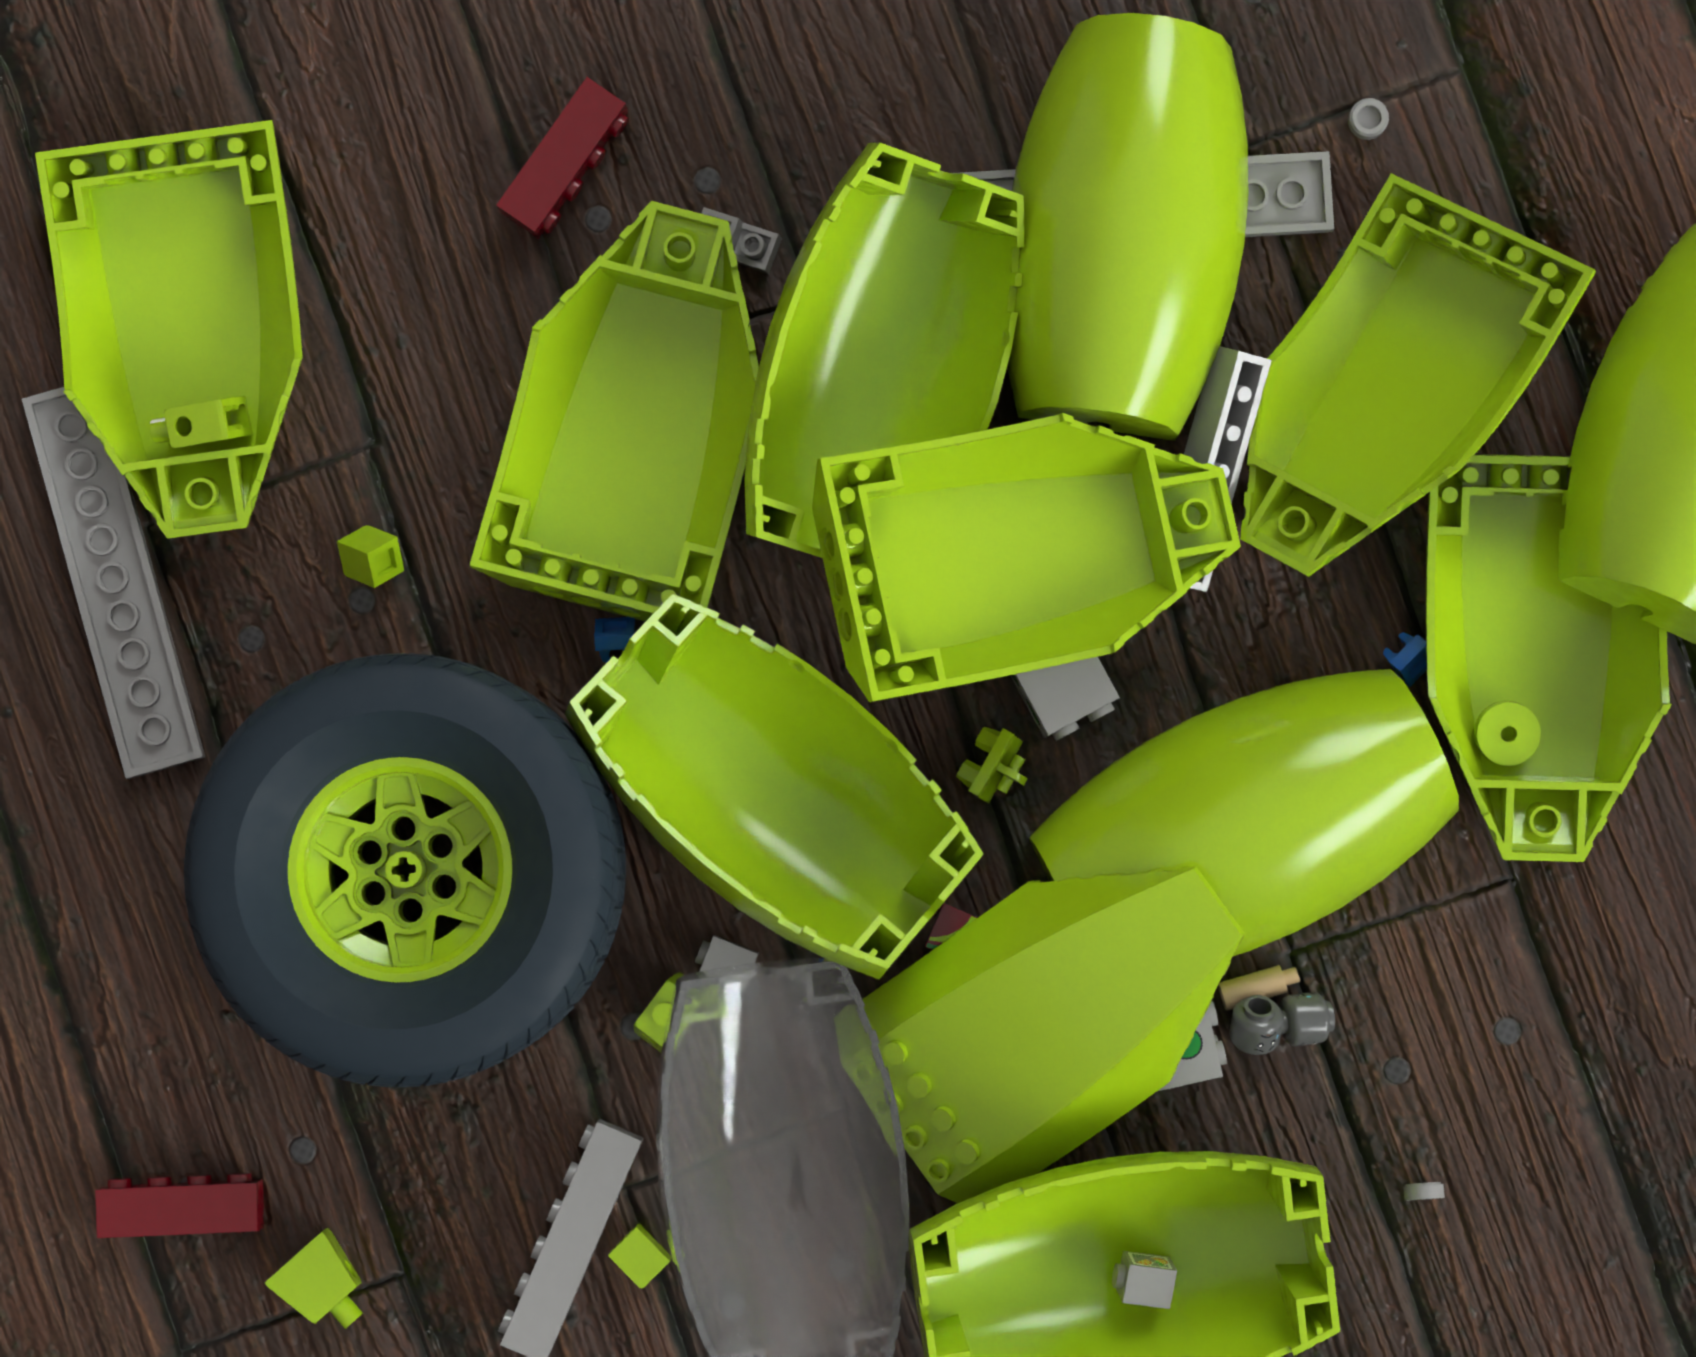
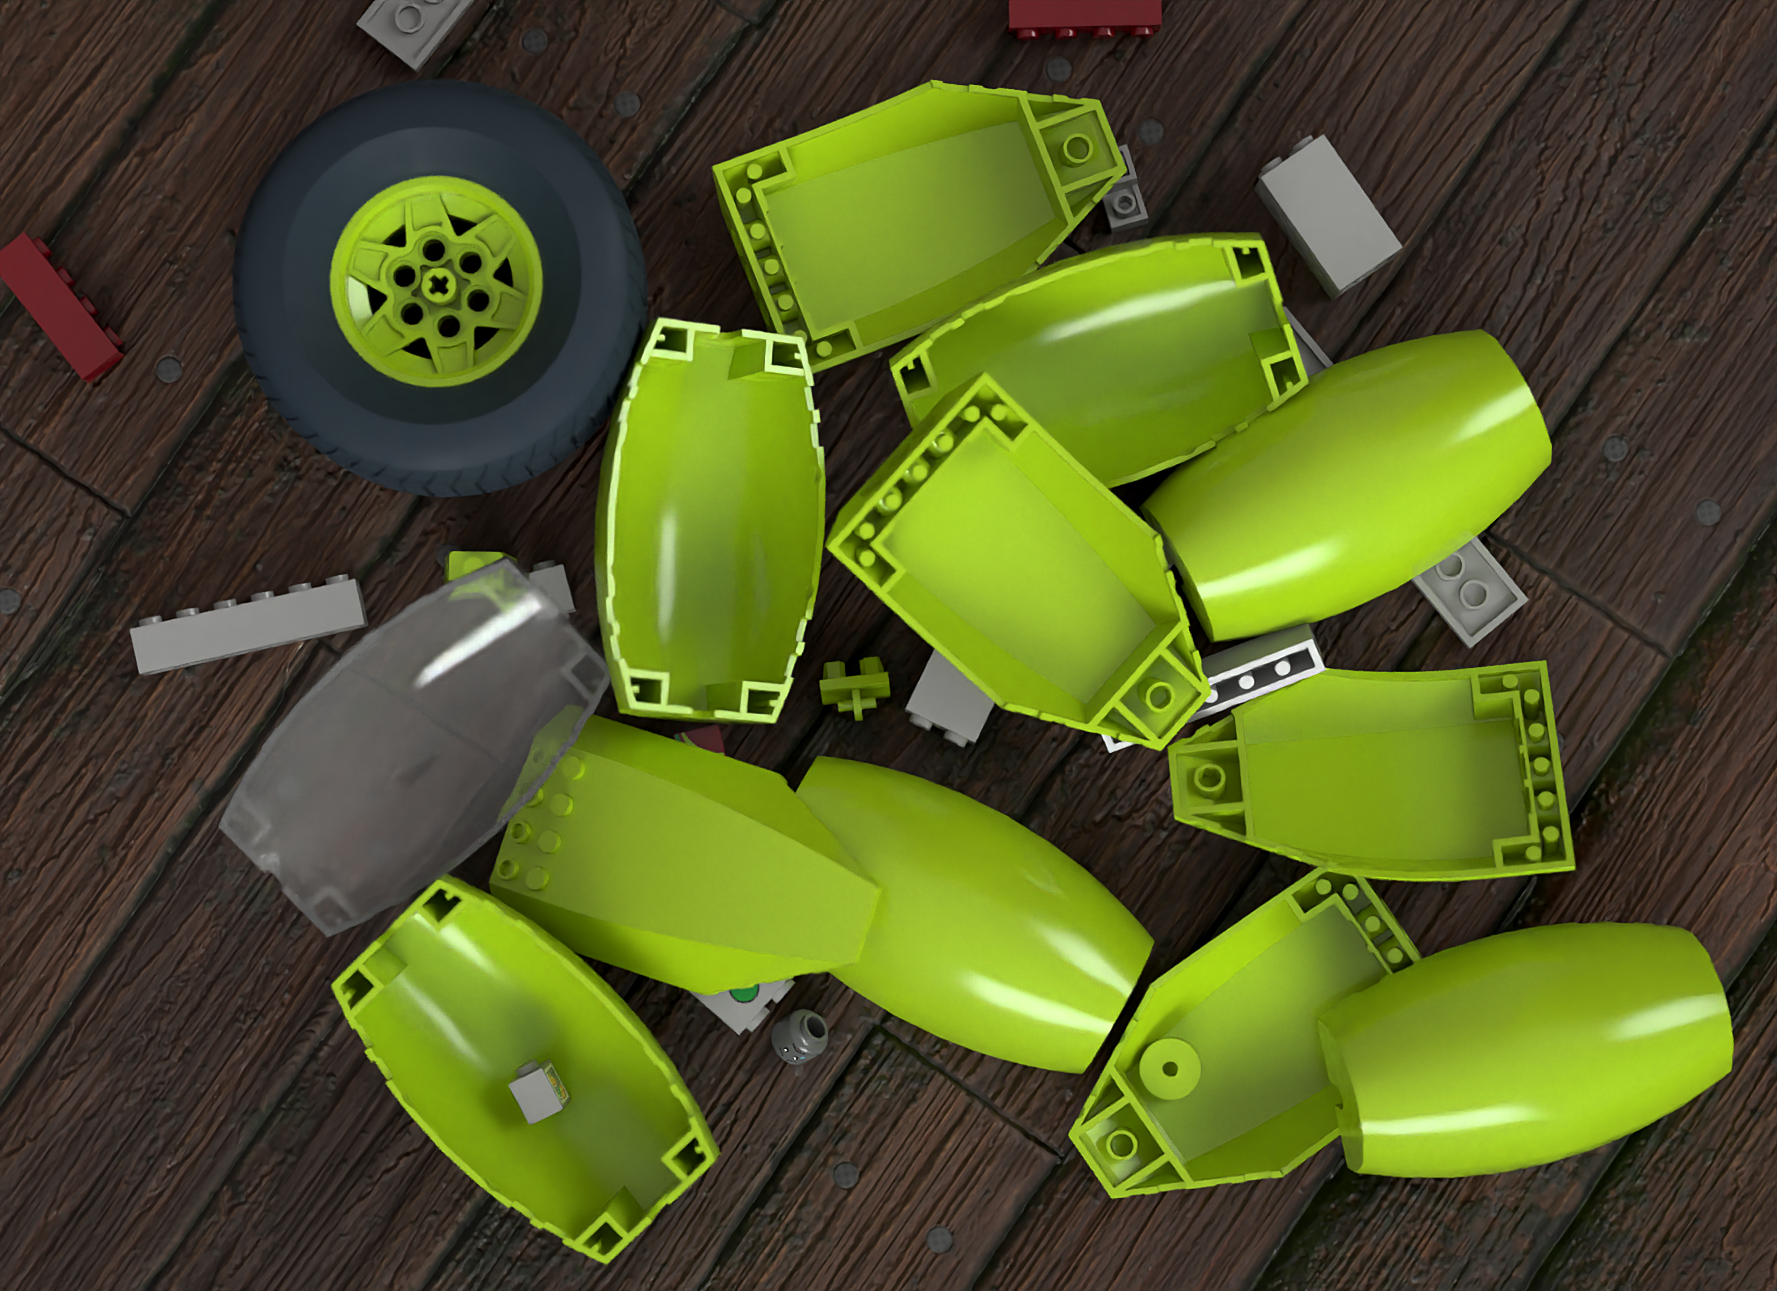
camera: 50 degrees right, 0 degrees up
(319, 1281) = (77, 455): lime torso -> none
(370, 556) = (665, 85): lime panel -> none
(612, 635) = (740, 315): blue tile -> none
(640, 1256) = (275, 687): lime panel -> none
(887, 83) = (1326, 215): none -> light grey brick
(1265, 982) = (838, 1020): tan cylinder -> none
(1306, 1019) = (833, 1072): dark grey head -> none
(1368, 118) = (1579, 613): light grey tile -> none
(1411, 660) = (1172, 950): blue tile -> none
(1423, 1191) = (765, 1261): light grey tile -> none

